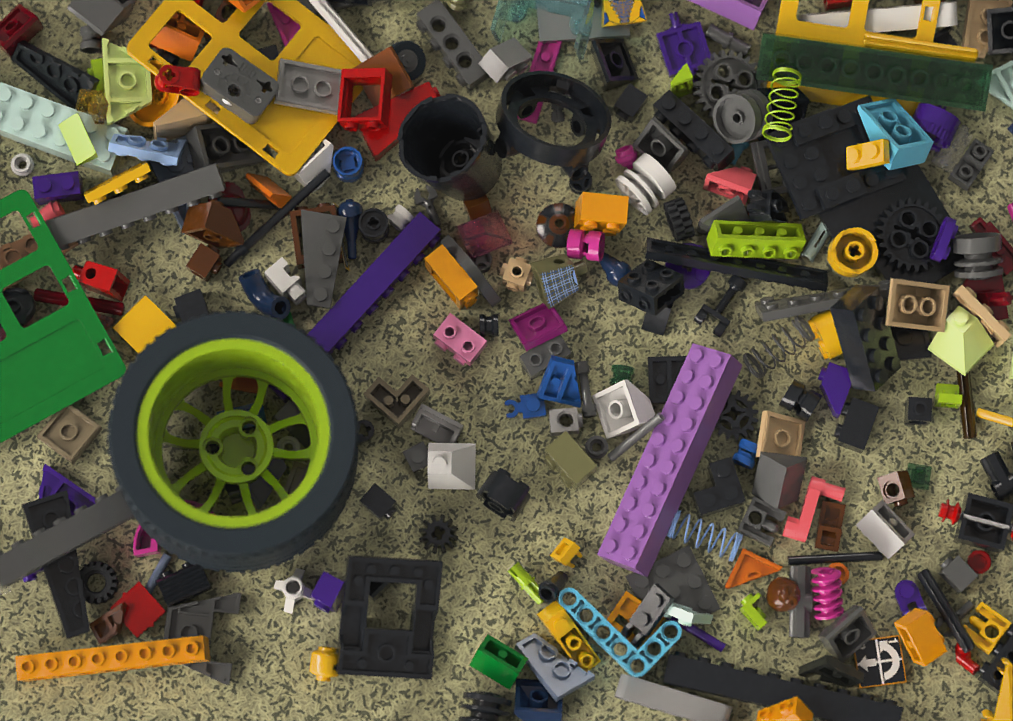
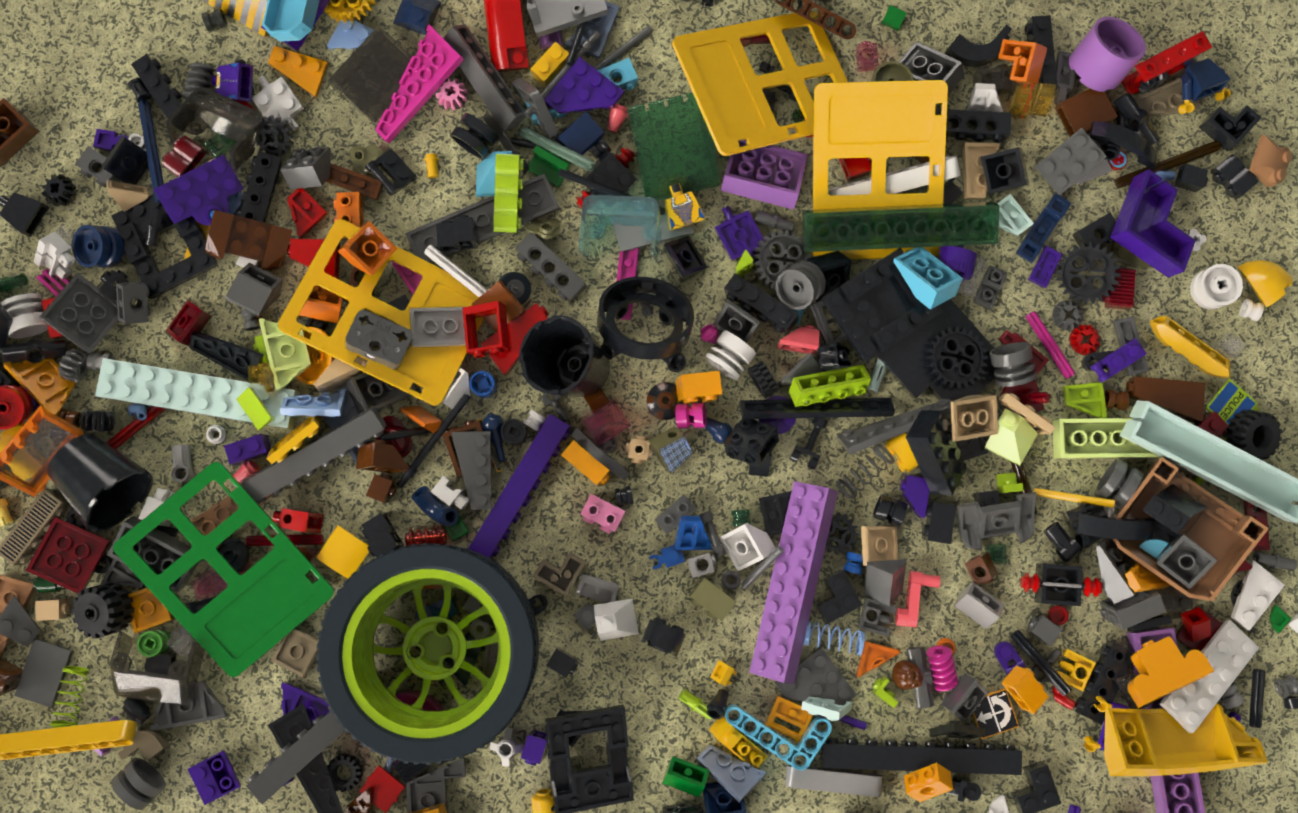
camera: 10 degrees left, 5 degrees up
(179, 80) = (329, 345): red piece -> none
(431, 531) = (613, 685): black gear -> none
(505, 60) = (596, 274): light grey brick -> none
(537, 326) = (664, 490): magenta tile -> none
(630, 104) = (704, 290): black brick -> none
(648, 614) = (801, 715): hinge -> none
(788, 84) = (832, 251): lime piece -> none
(830, 525) = (932, 609): reddish brown slope -> none
(834, 558) = (941, 634): black bar -> none
(865, 253) = (920, 376): yellow brick -> none
(867, 154) = (911, 299): yellow plate -> none
(921, 47) = (934, 199): yellow axle -> none
(925, 433) = (997, 520): none -> dark grey piece
(946, 231) = (983, 360): dark purple plate -> none

